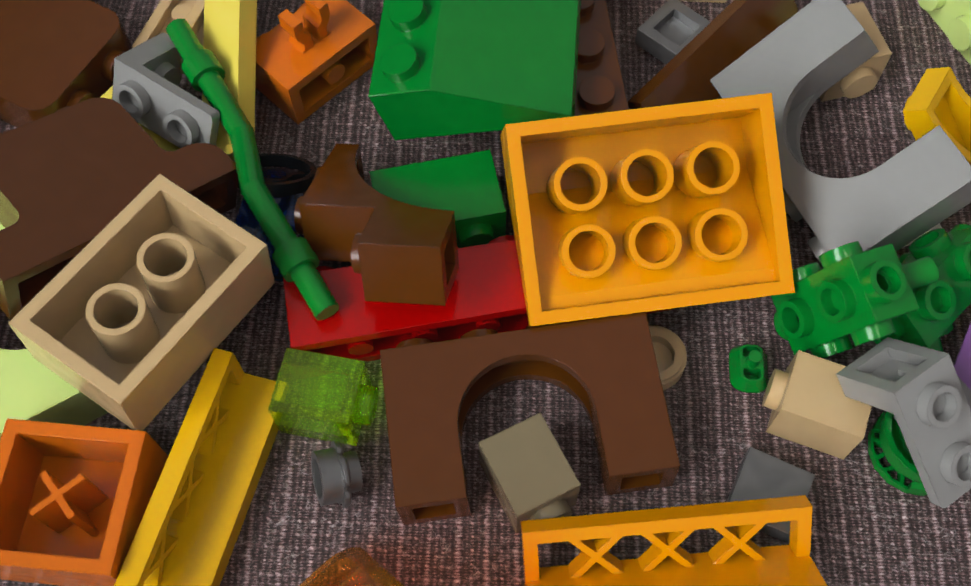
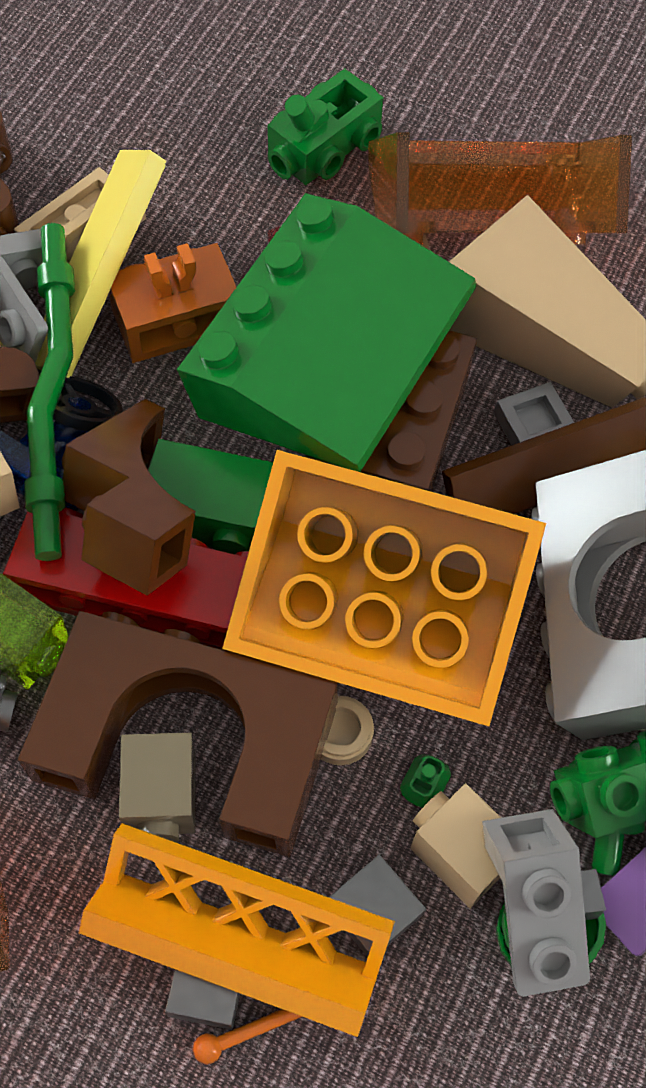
camera: 20 degrees right, 0 degrees up
(849, 297) = (538, 753): green brick -> none

